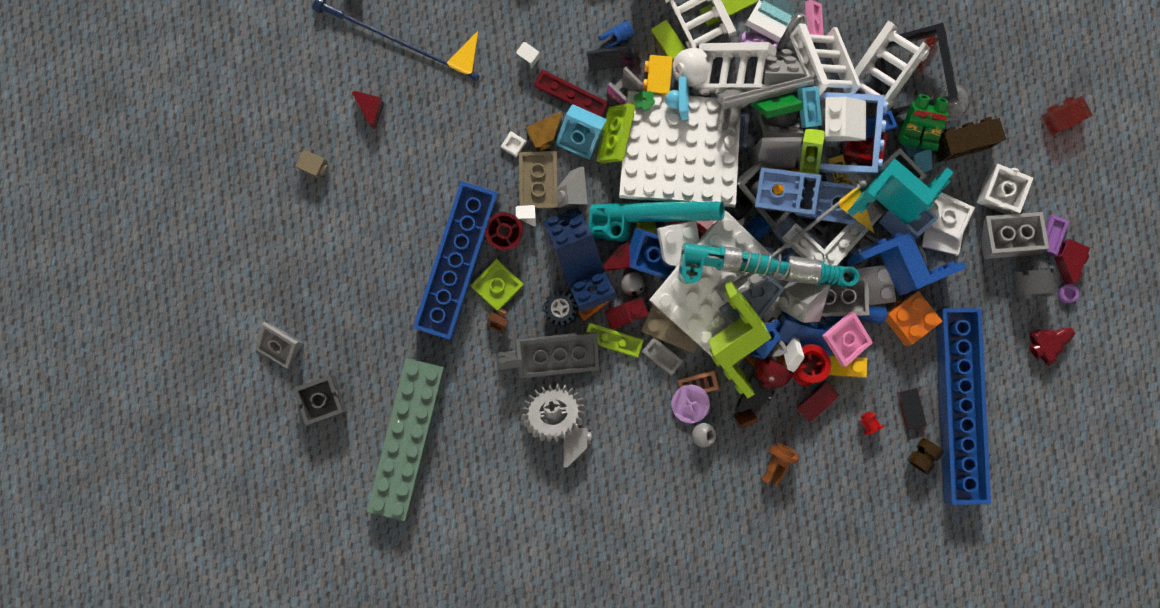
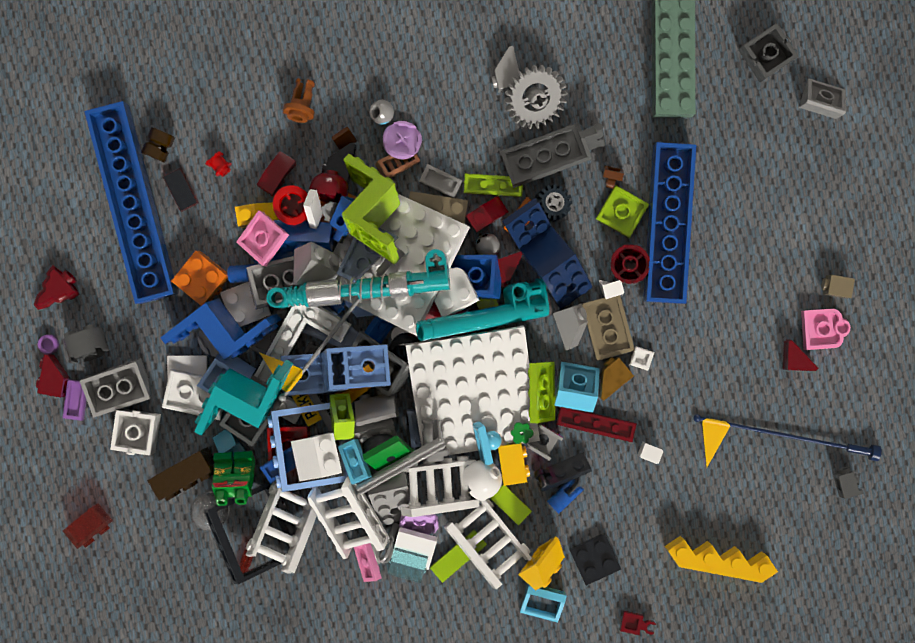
camera: 175 degrees right, 5 degrees up
(336, 129) = (823, 329): none -> bright pink plate

